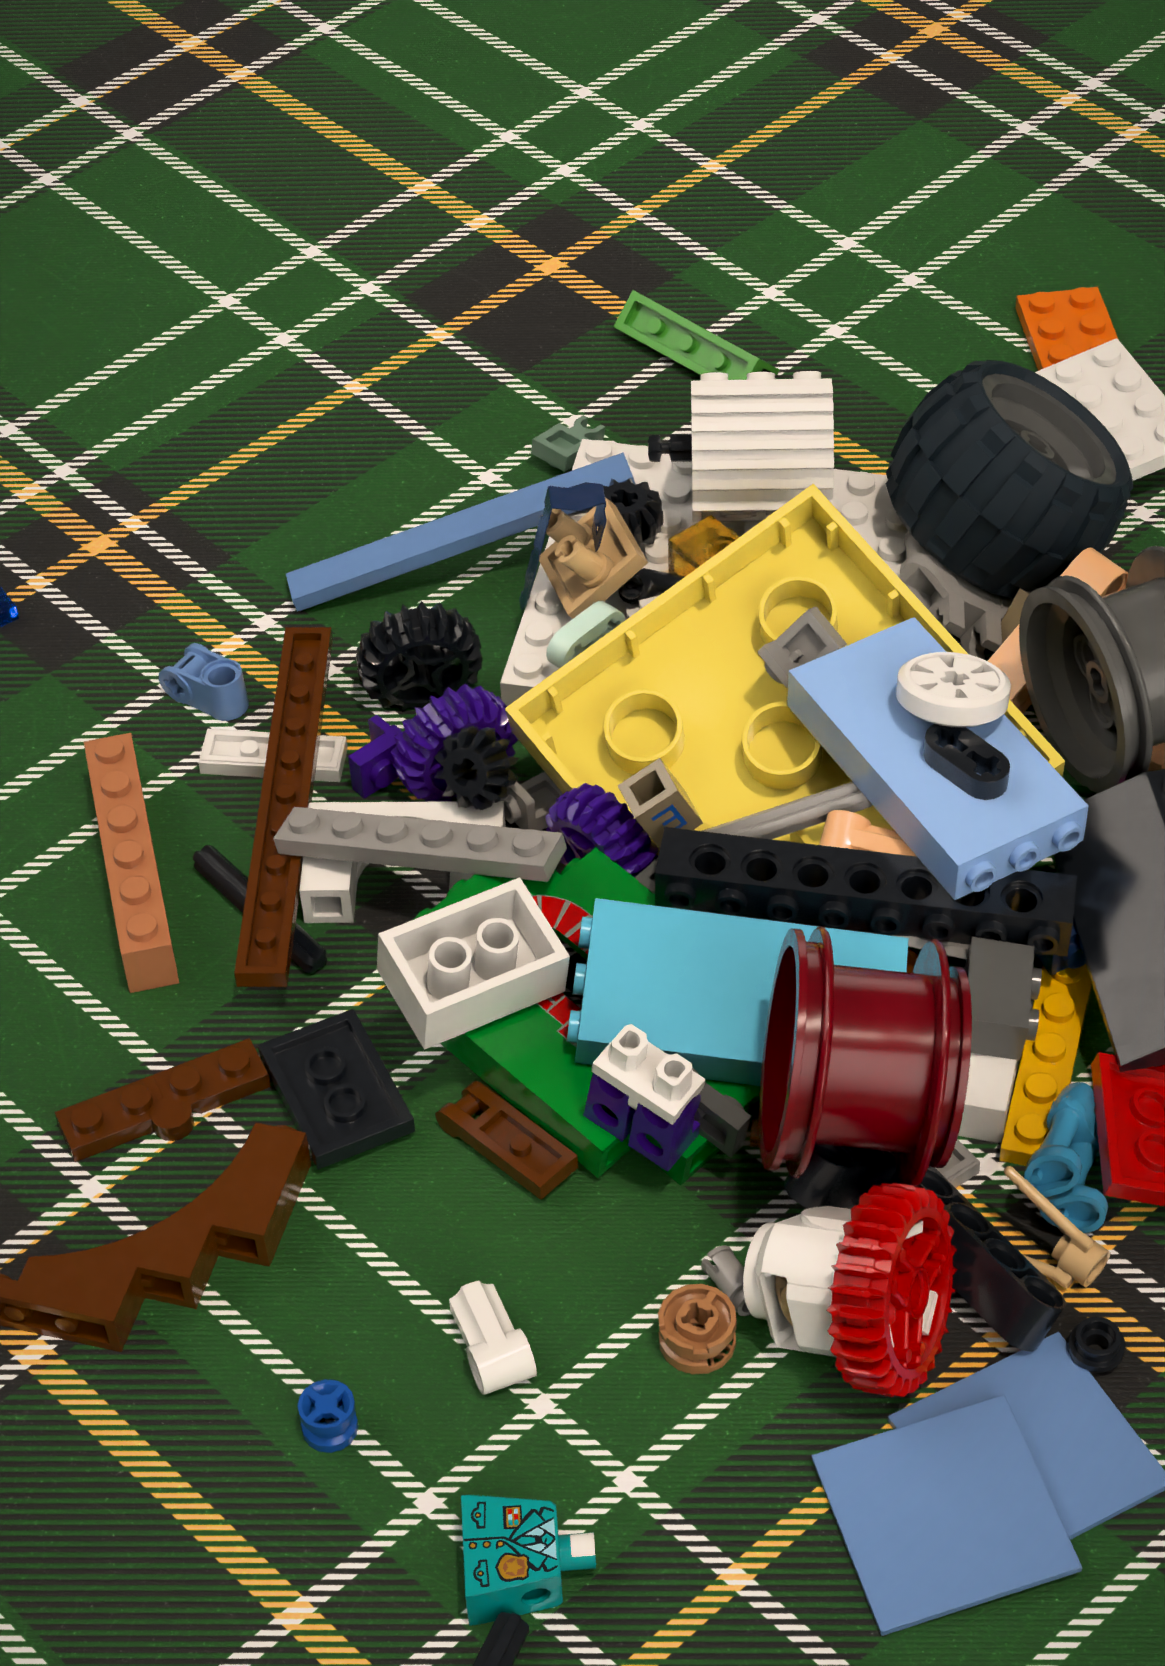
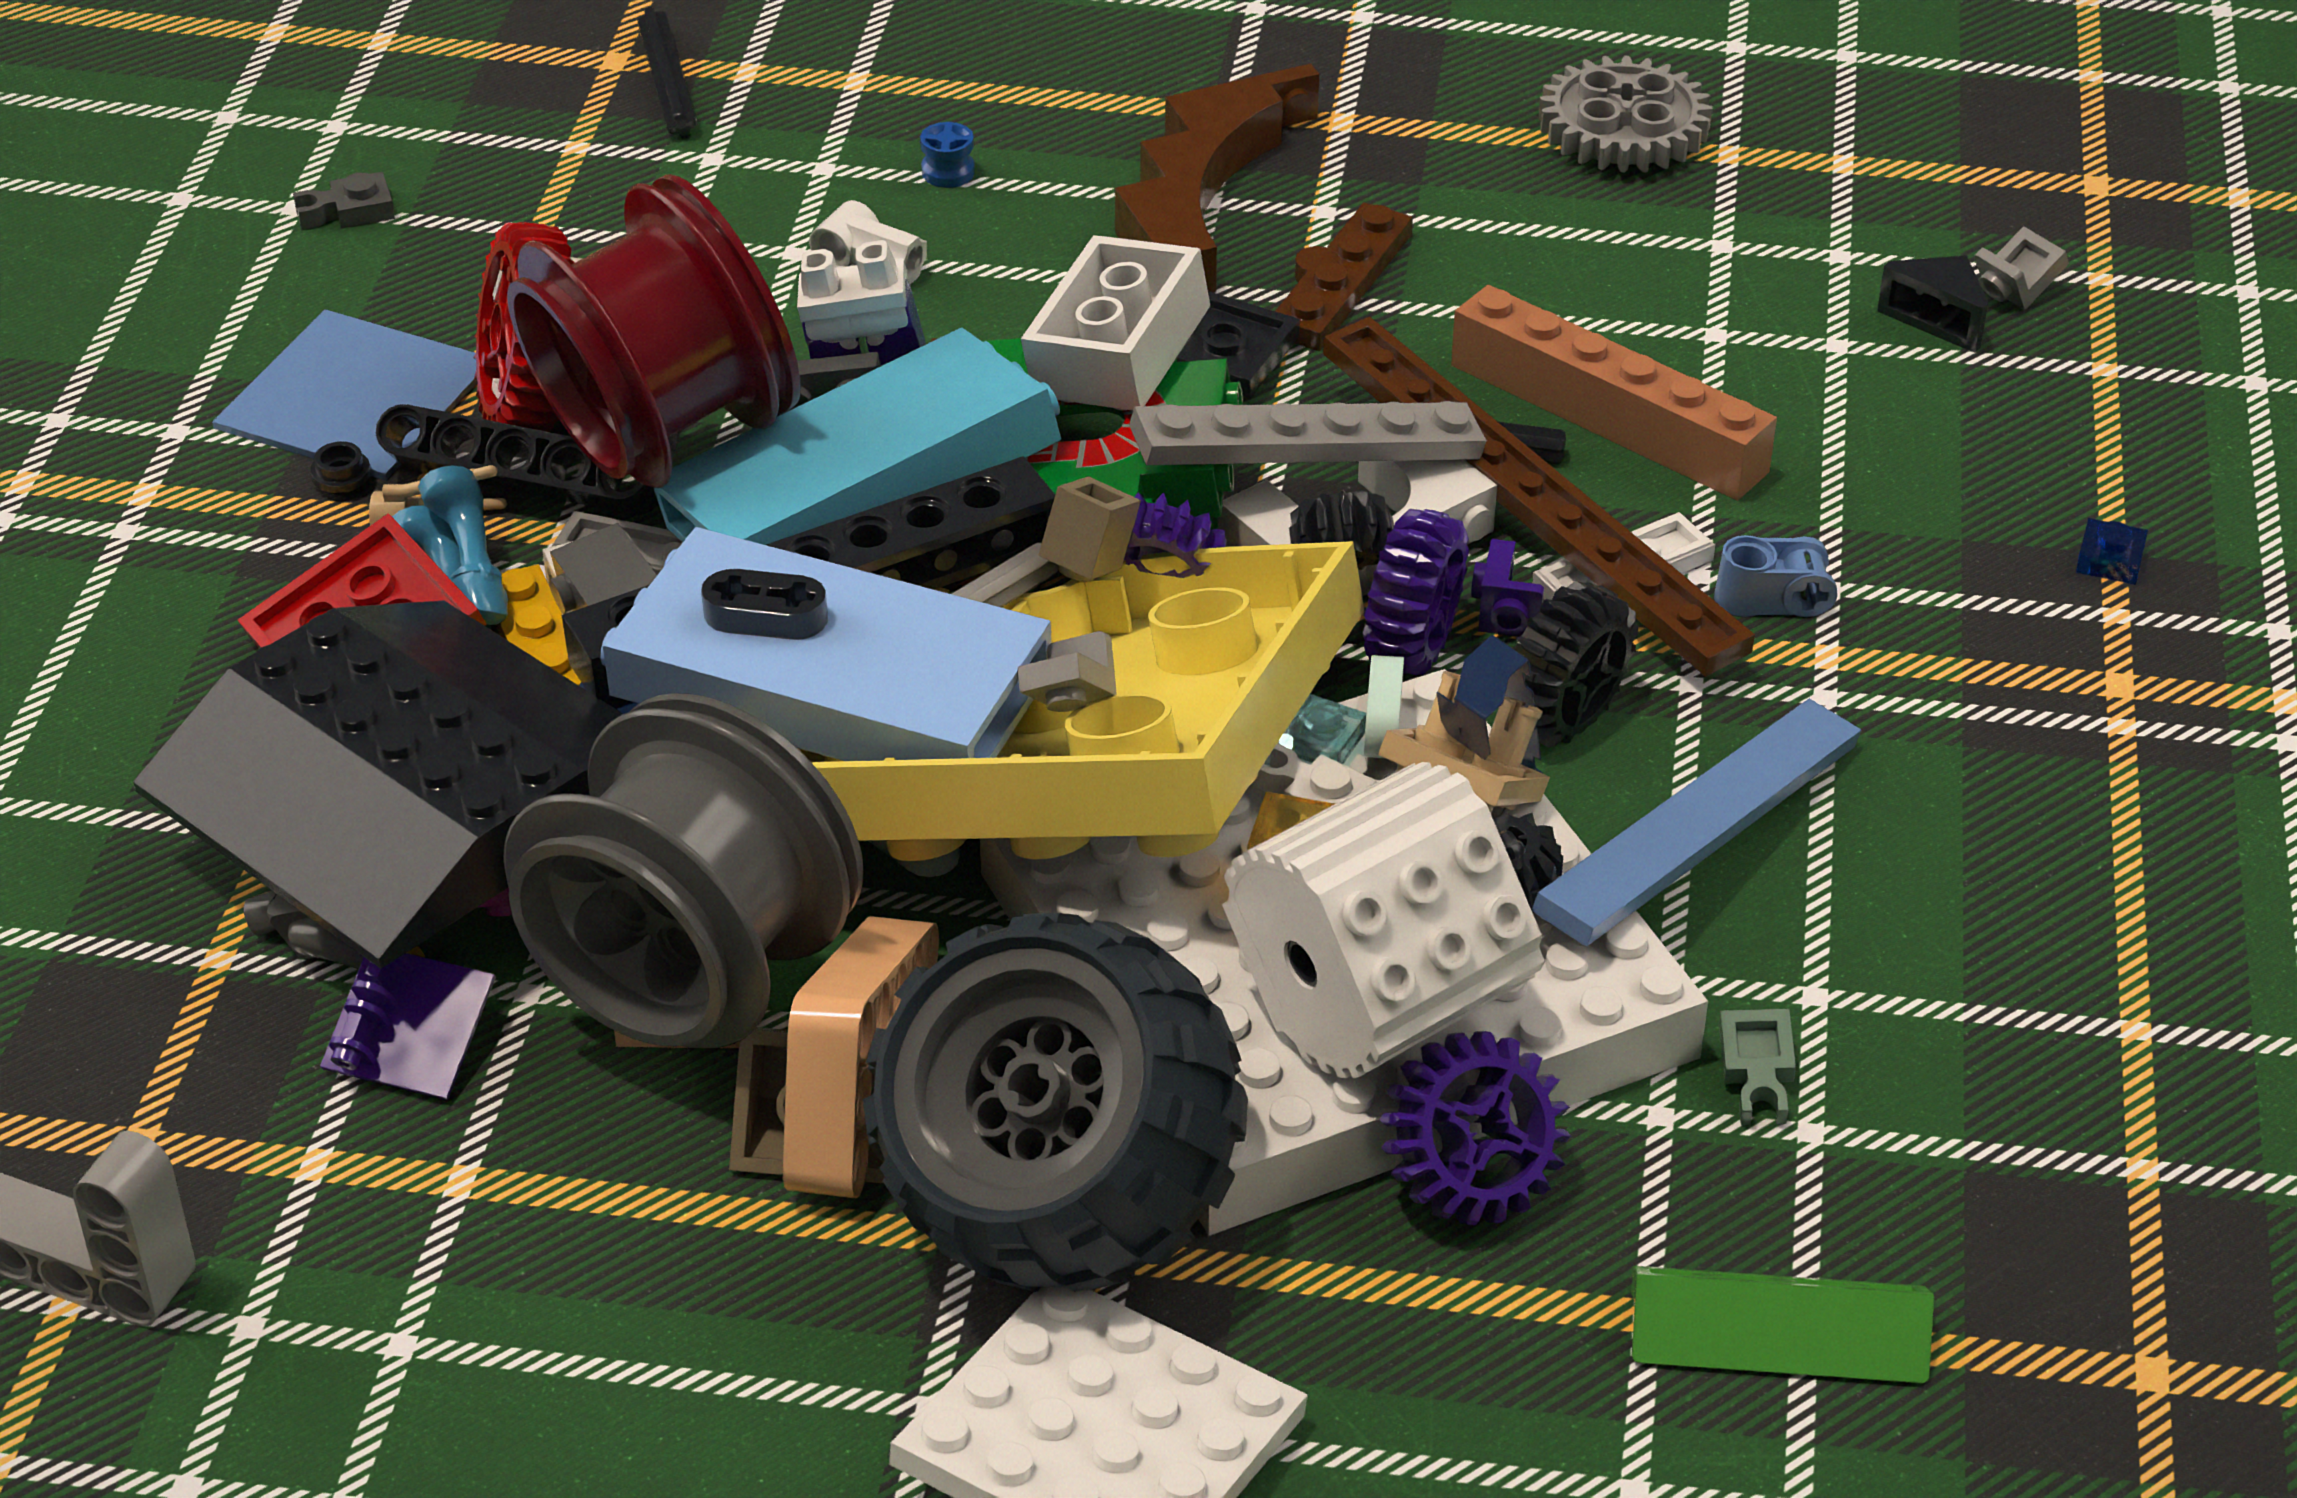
camera: 140 degrees right, 5 degrees down
(516, 1556) = (715, 142): teal torso -> none
(945, 1514) = (384, 321): medium blue piece -> none
(953, 689) = (835, 673): white wheel -> none

